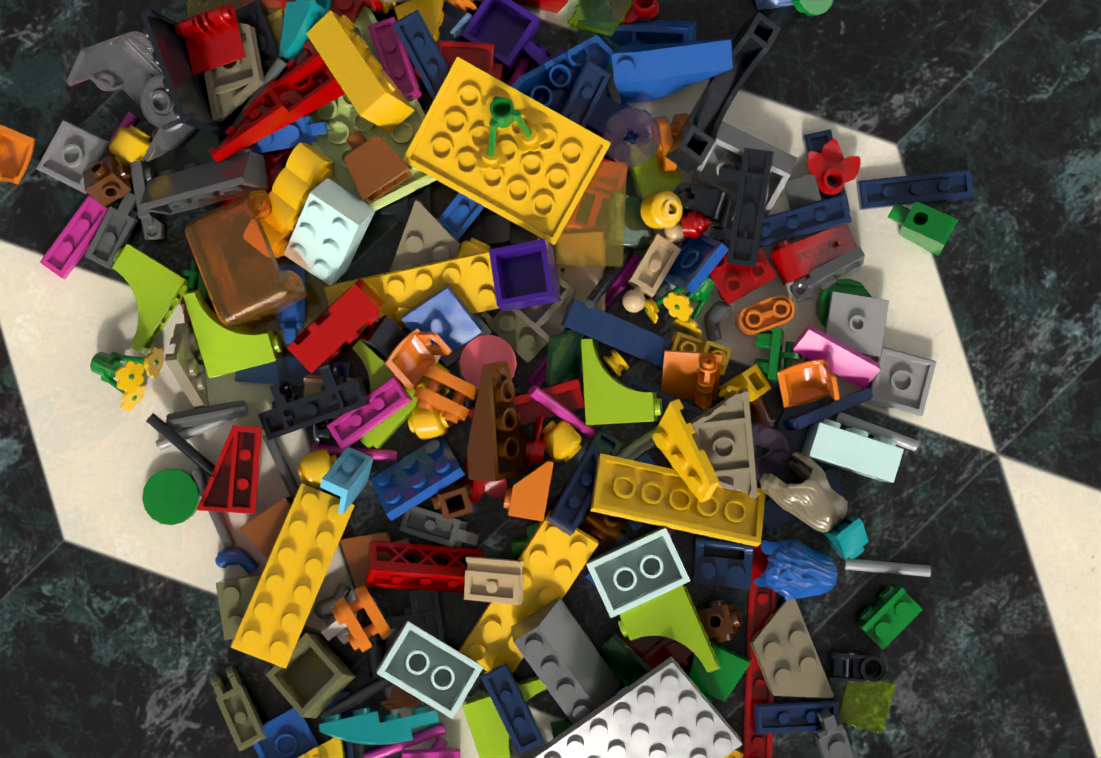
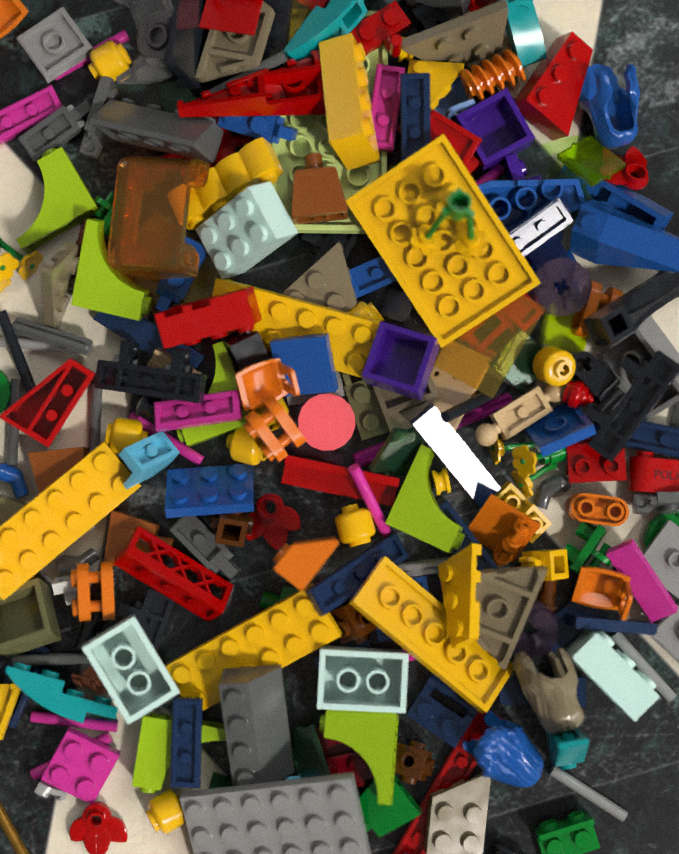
camera: 25 degrees right, 0 degrees up
(107, 180) = (73, 81): reddish brown brick -> none
(494, 580) = (230, 619): tan plate -> none
(496, 437) = (298, 495): reddish brown wedge -> none
(536, 449) = (328, 521): red plate -> none

